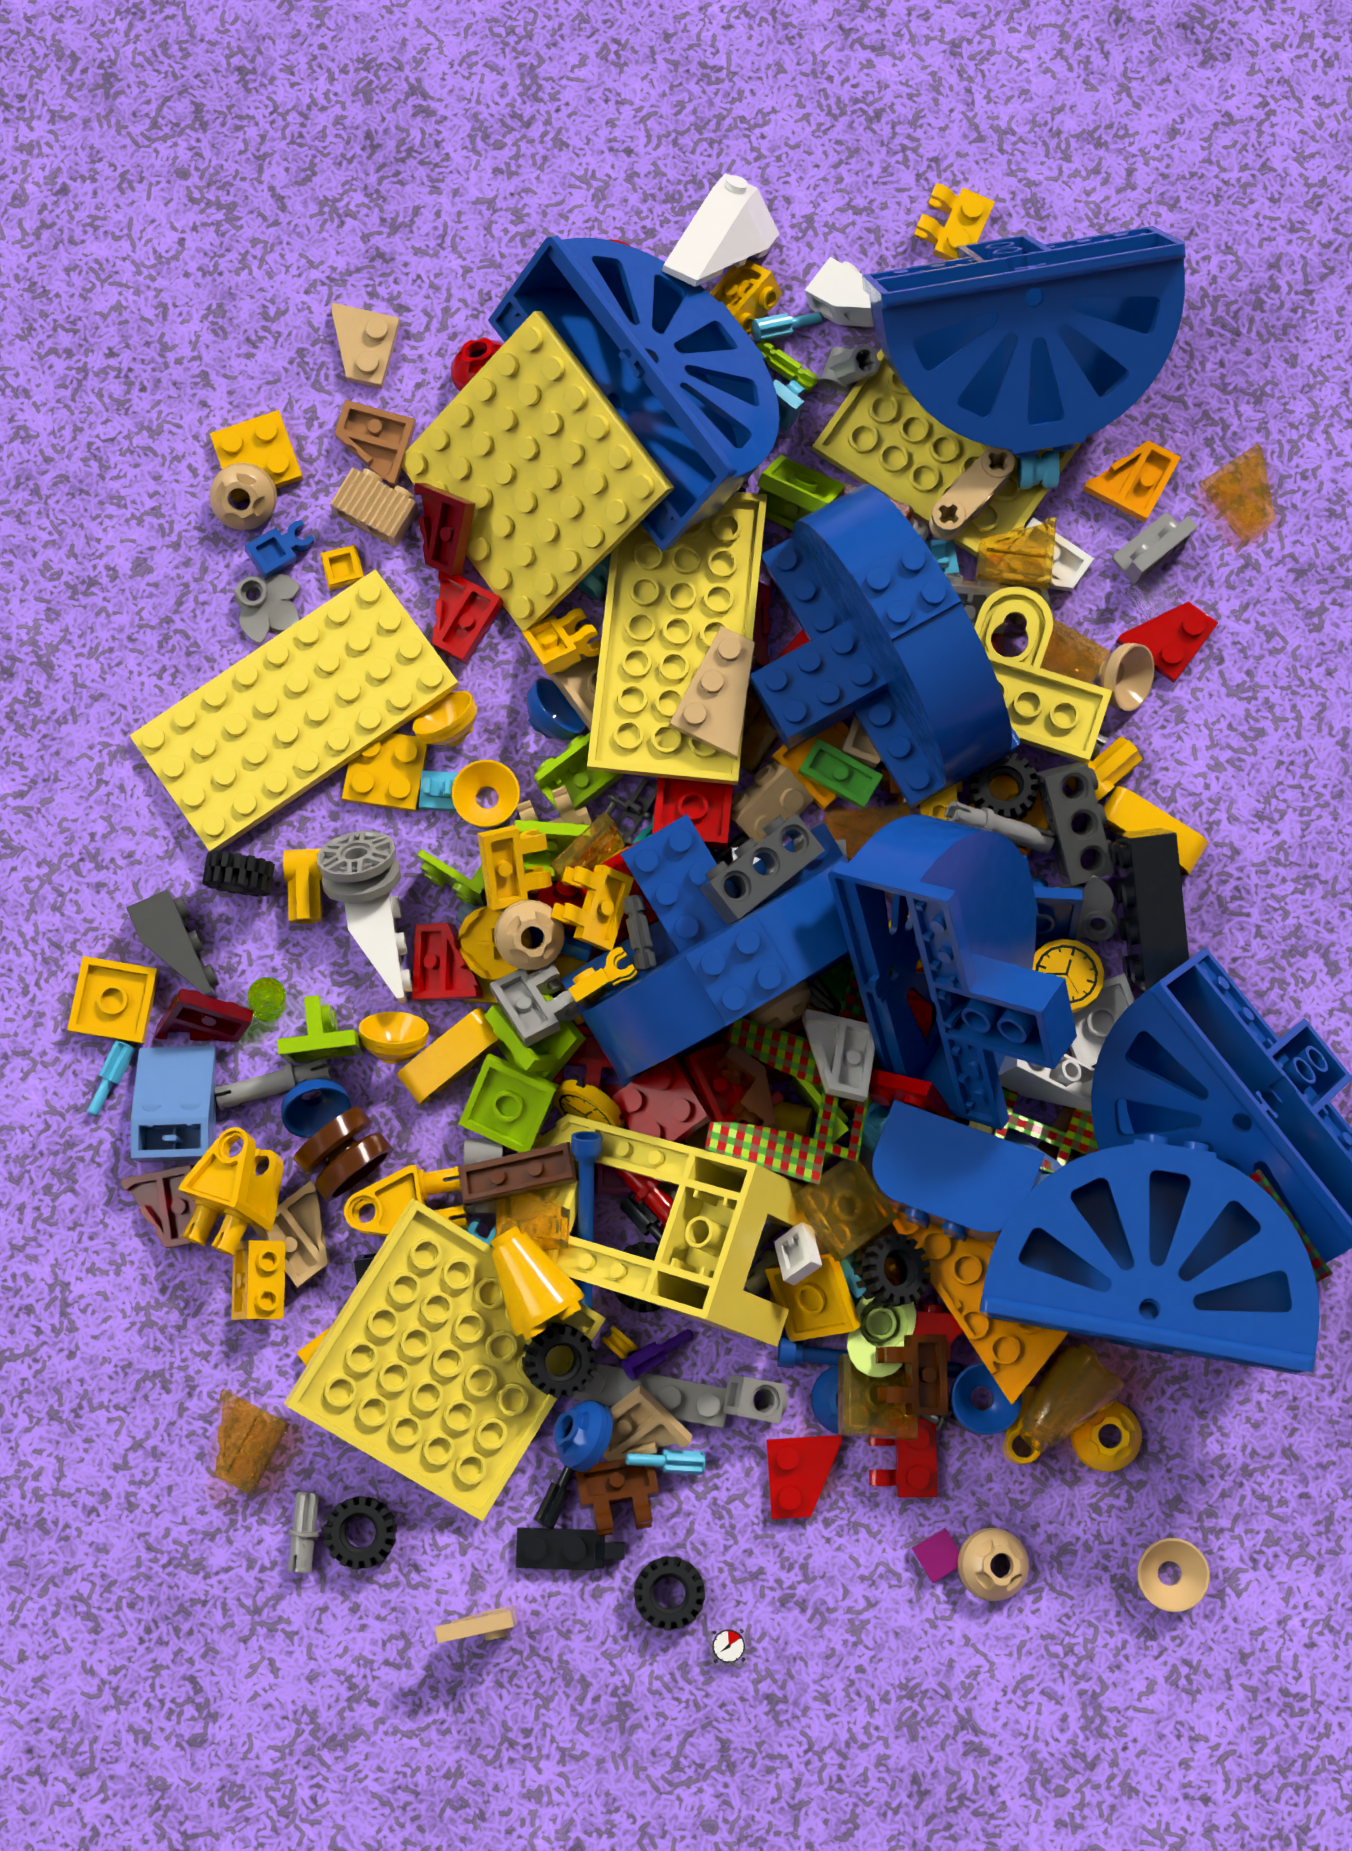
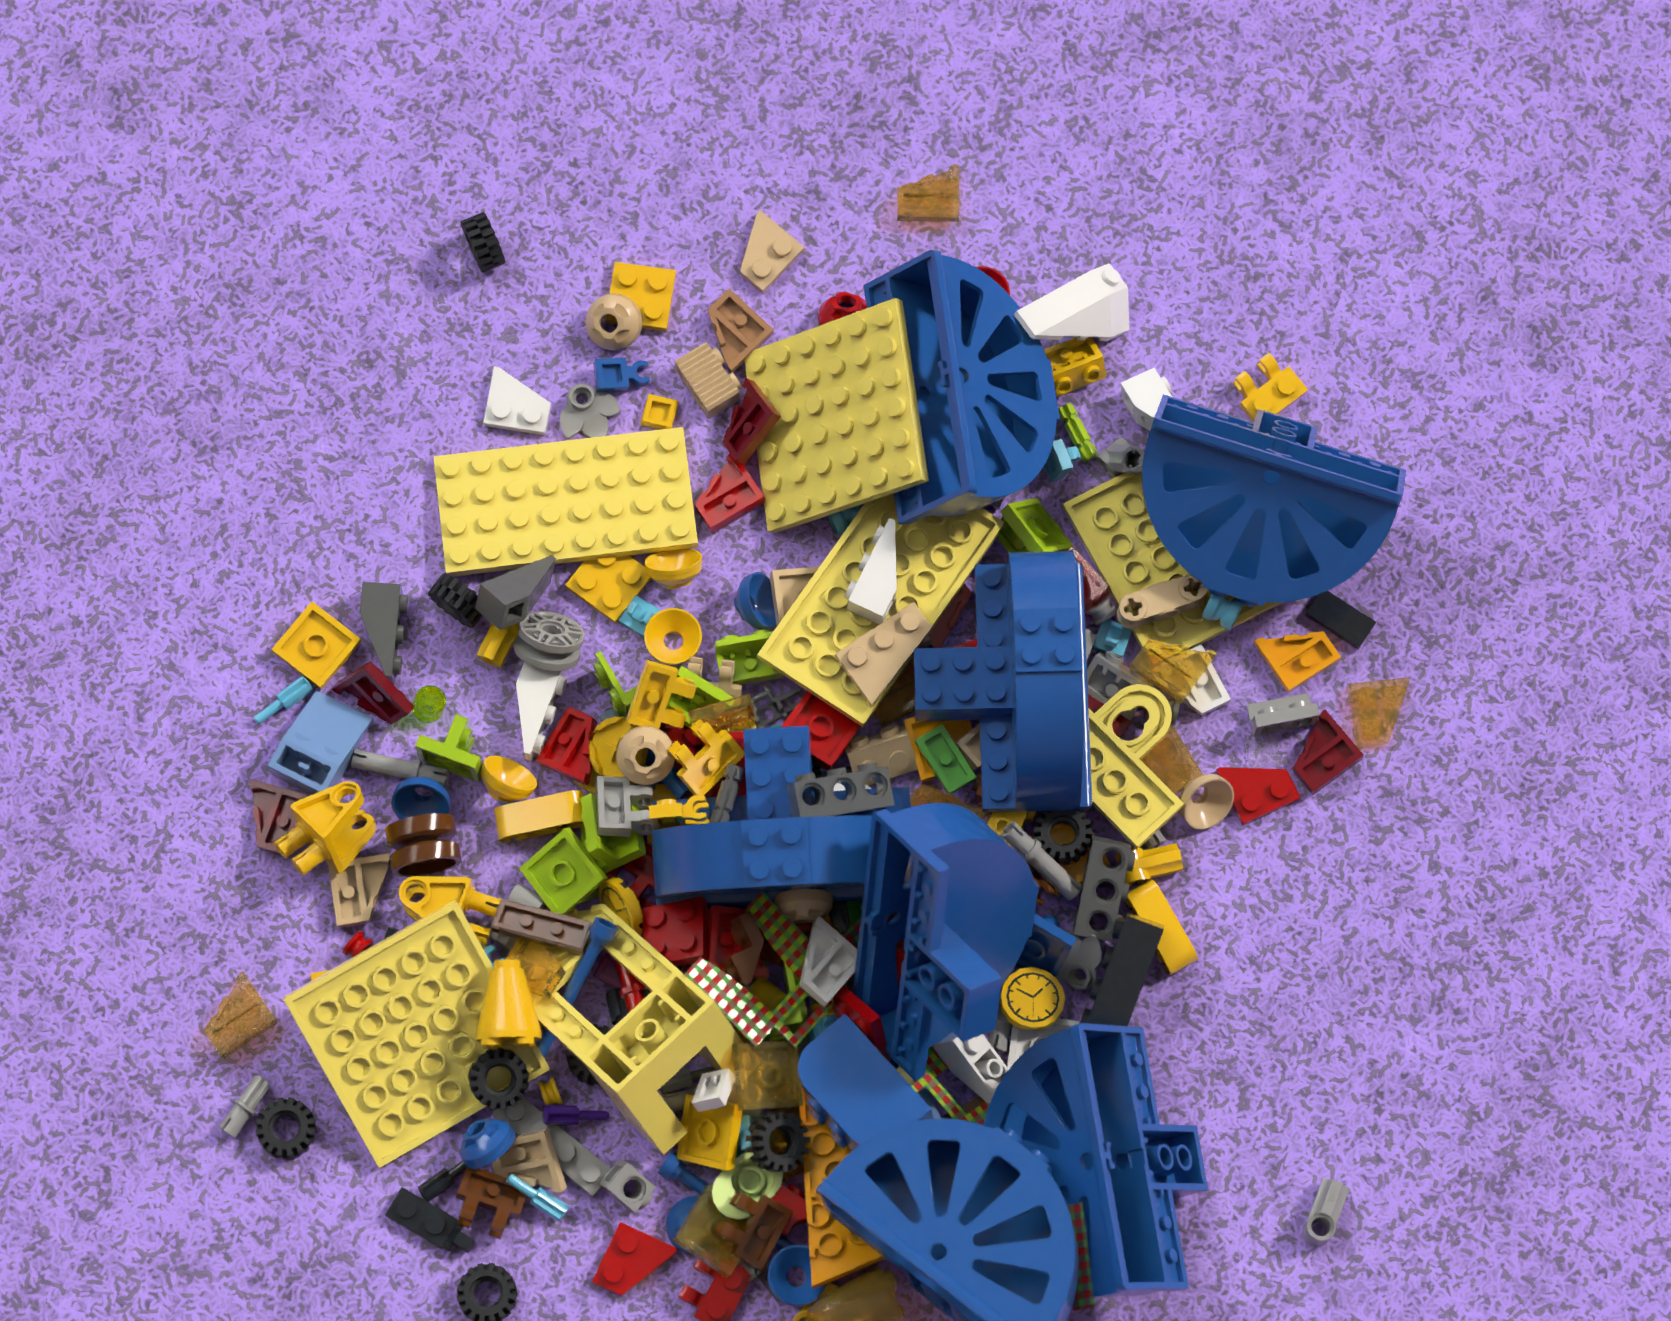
camera: 25 degrees right, 5 degrees down
(59, 482) = (482, 242): none -> black tyre
(187, 637) = (515, 406): none -> white wing
(258, 1280) = (311, 905): yellow bracket -> none
(294, 839) = (514, 594): none -> dark grey slope
(331, 1297) = (357, 945): none -> red bush
(491, 1623) = (343, 1240): tan wing -> none
(503, 201) = (930, 198): none -> clear yellow wing
(559, 642) = (789, 551): yellow plate -> none
(675, 626) = (877, 584): none -> white slope
(781, 325) = (1090, 400): medium azure axle -> none
(1158, 420) = (1340, 619): none -> black tile
(1219, 566) = (1325, 755): none -> dark red wing

